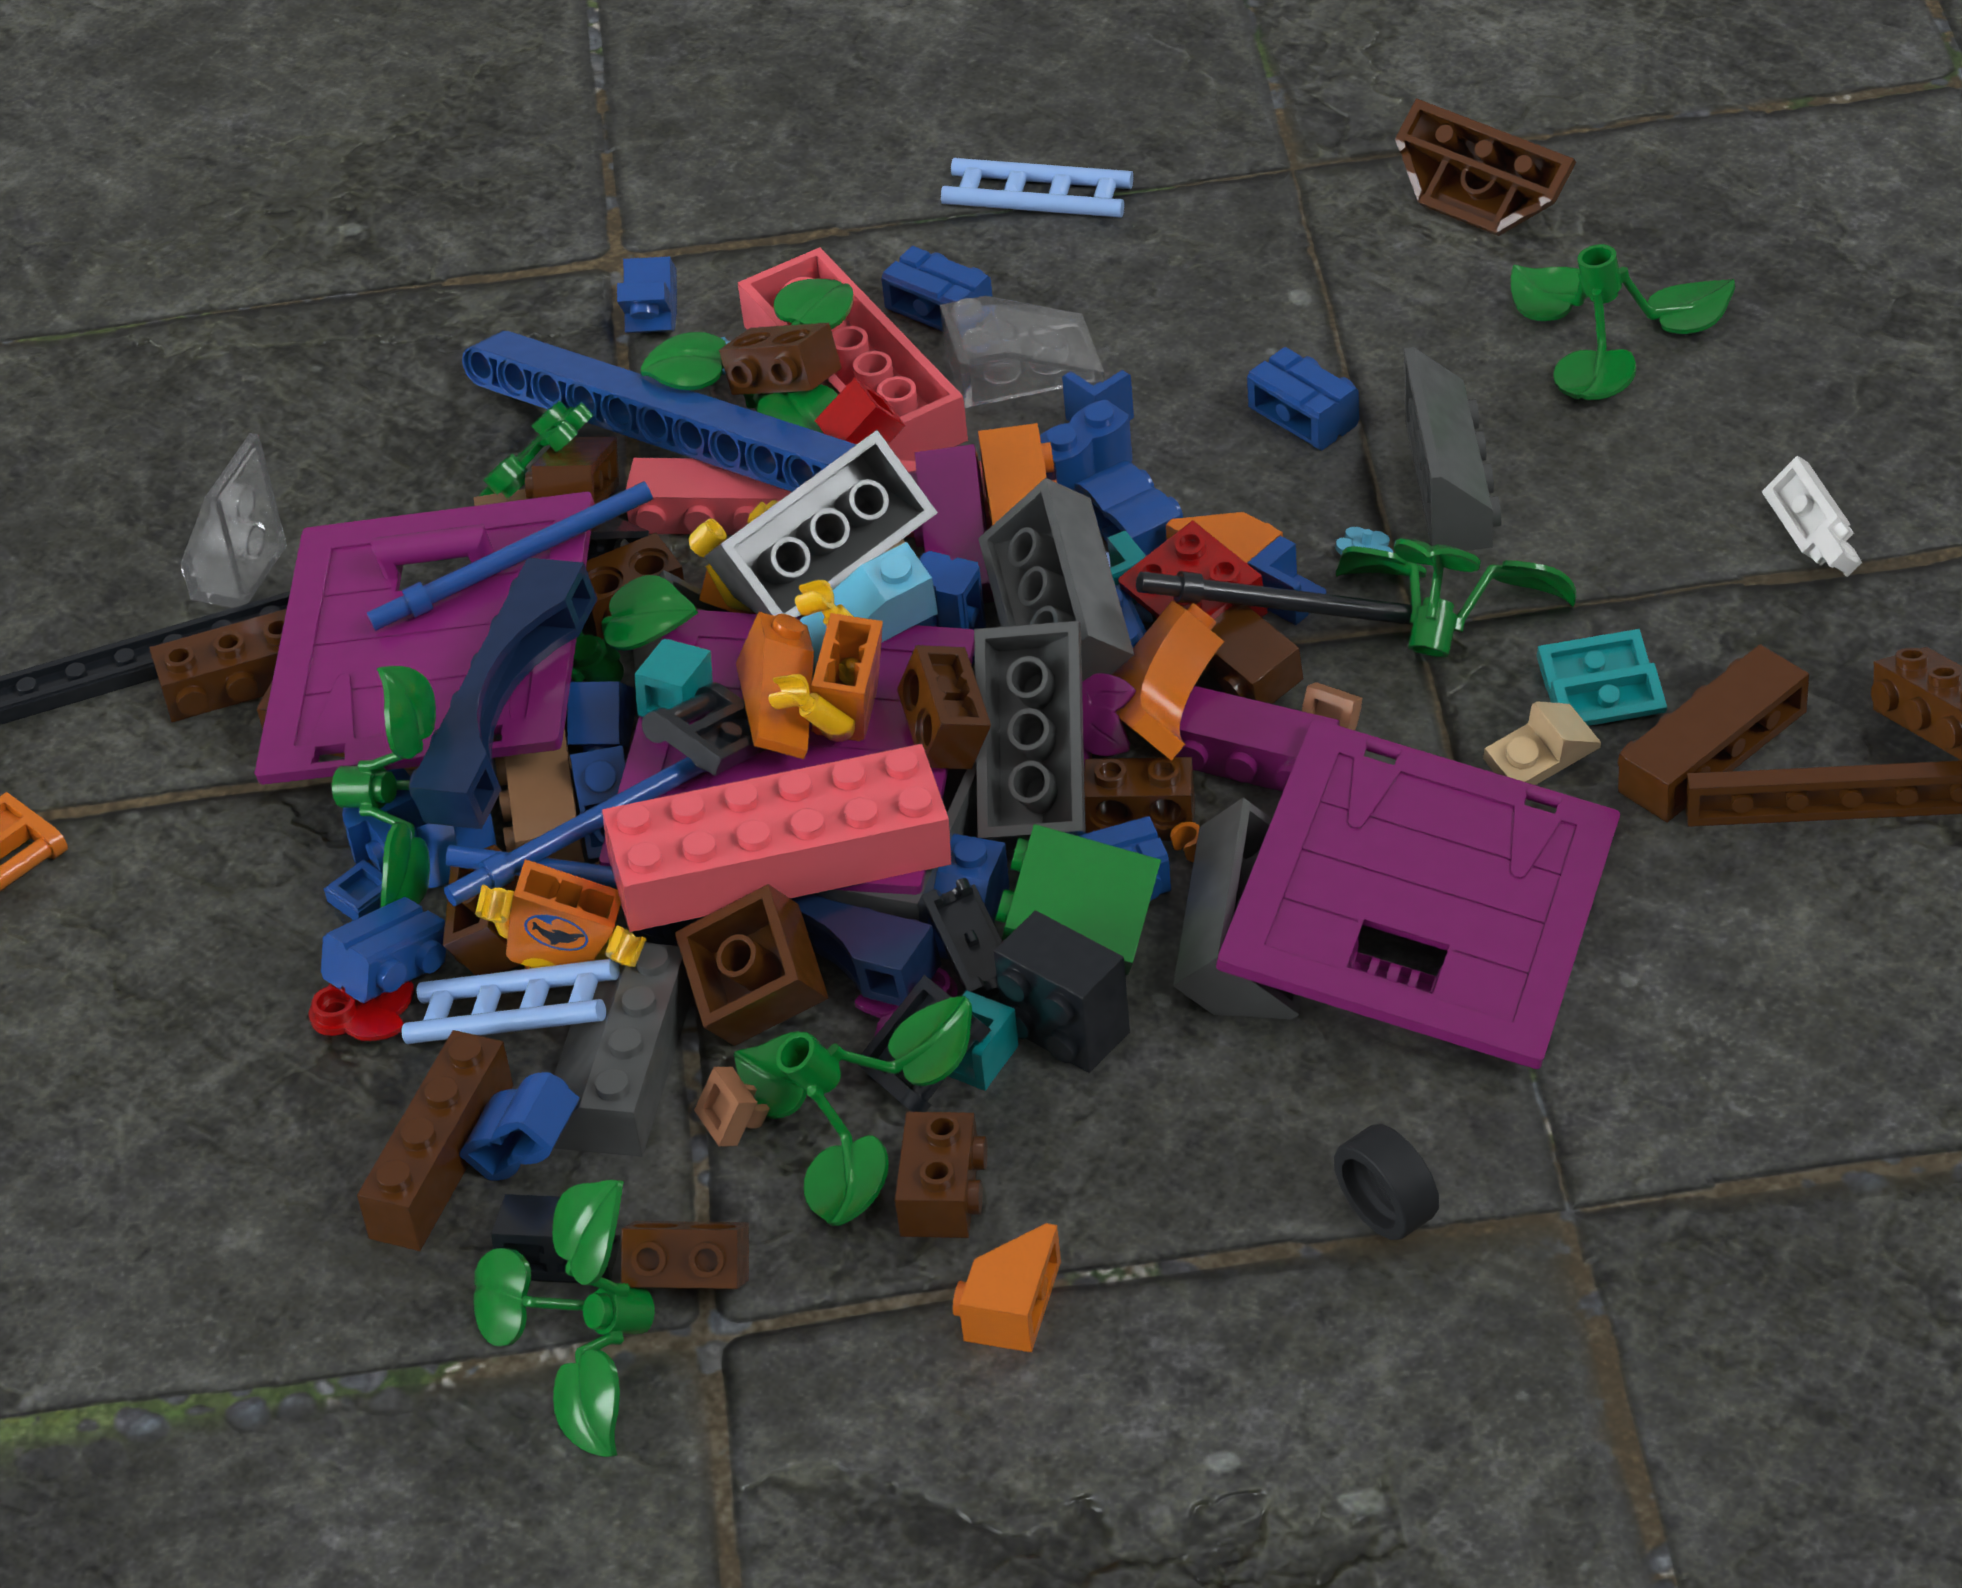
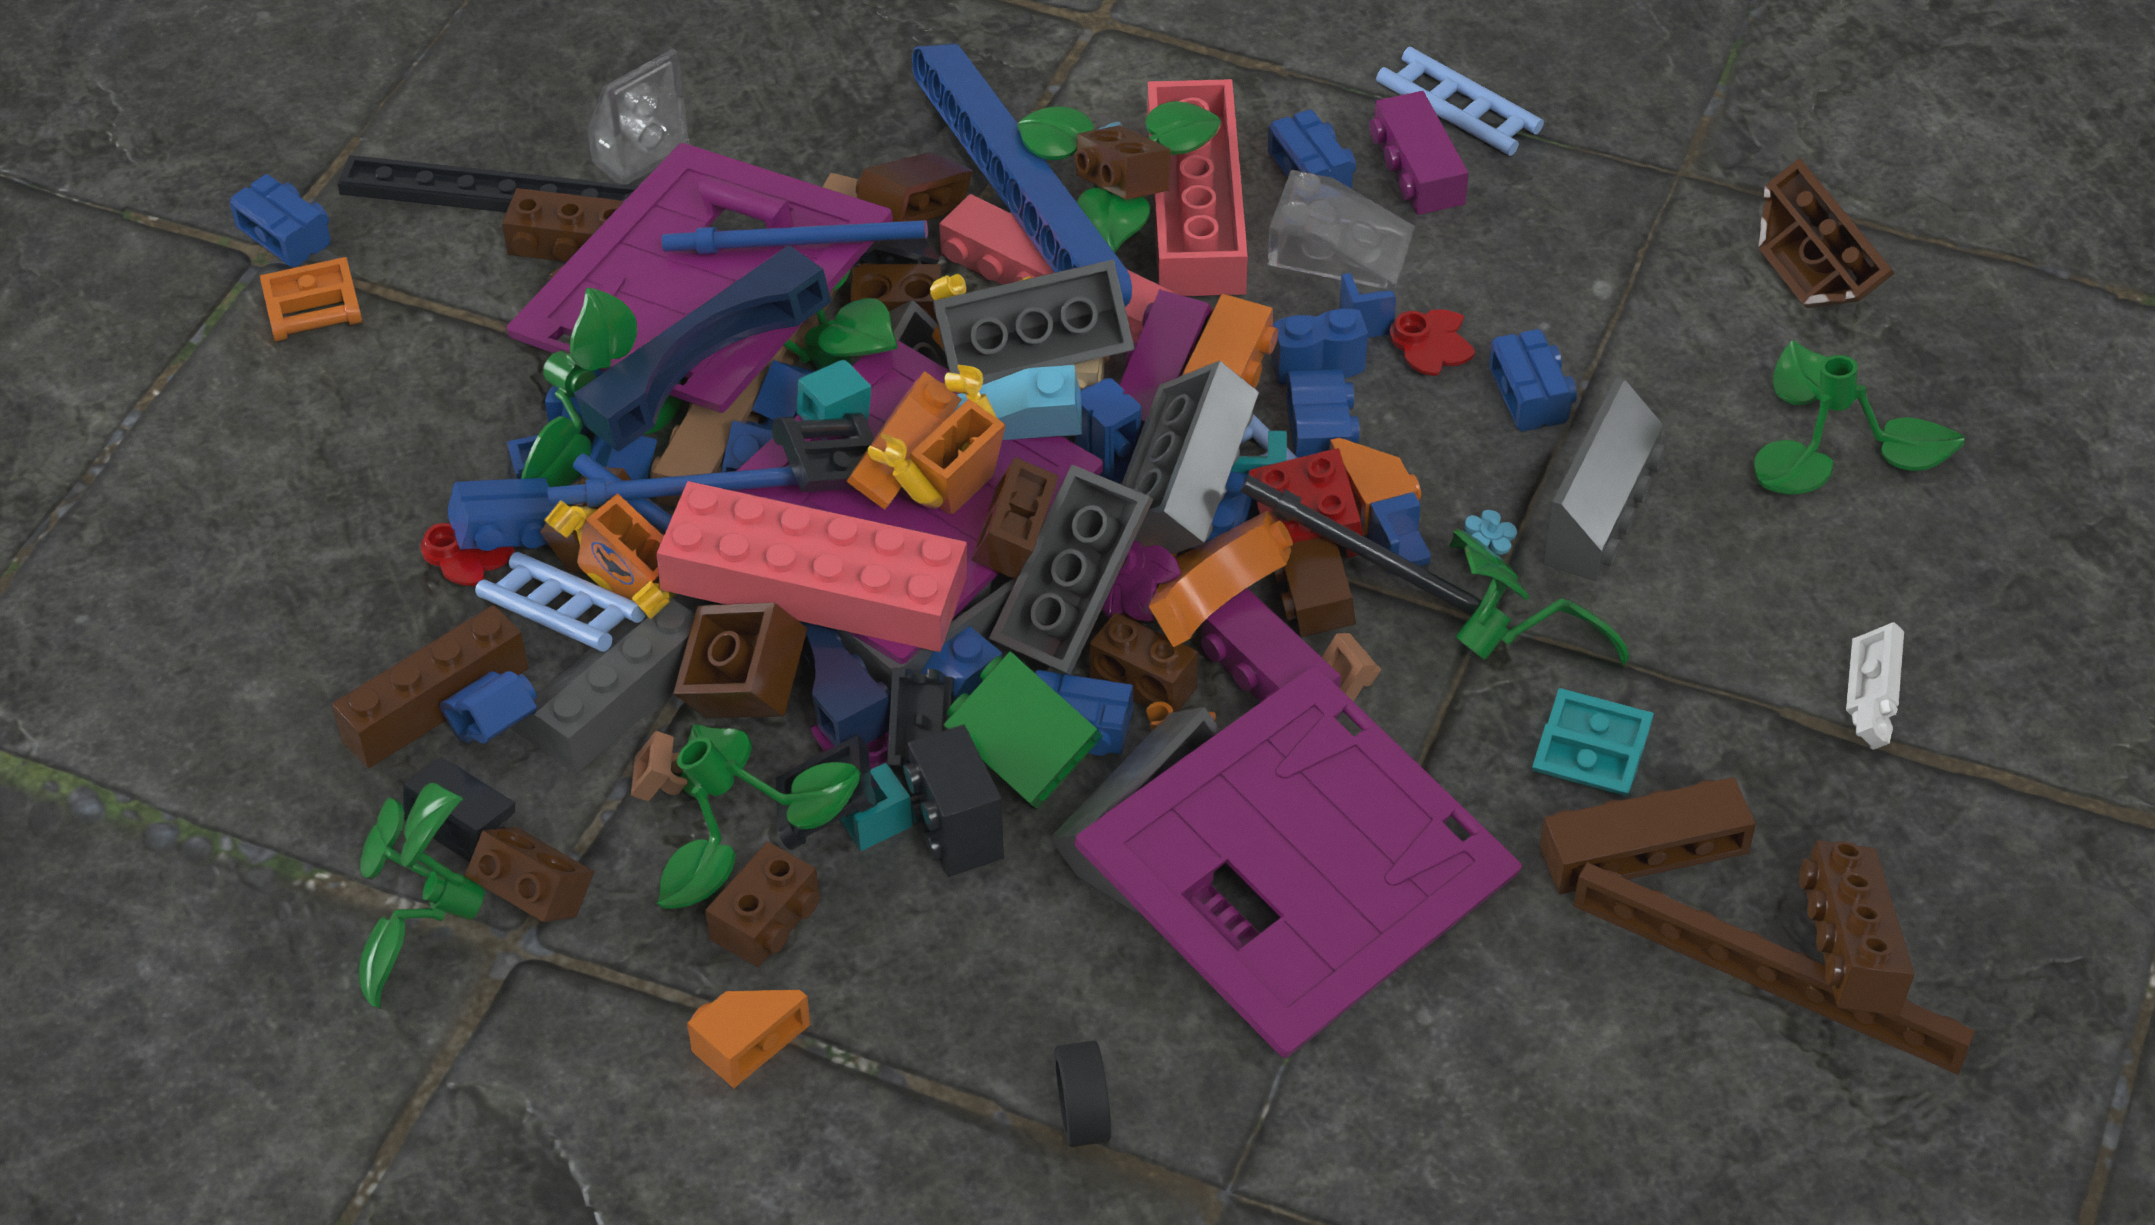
camera: 25 degrees right, 5 degrees up
(555, 428) = (935, 138): green plant -> none
(648, 294) = (1088, 62): blue brick -> none
(858, 414) = (1145, 243): red brick -> none
(1041, 245) = (1419, 152): none -> magenta brick
(1178, 405) = (1431, 340): none -> red plate
(1543, 746) = (1499, 778): tan slope -> none

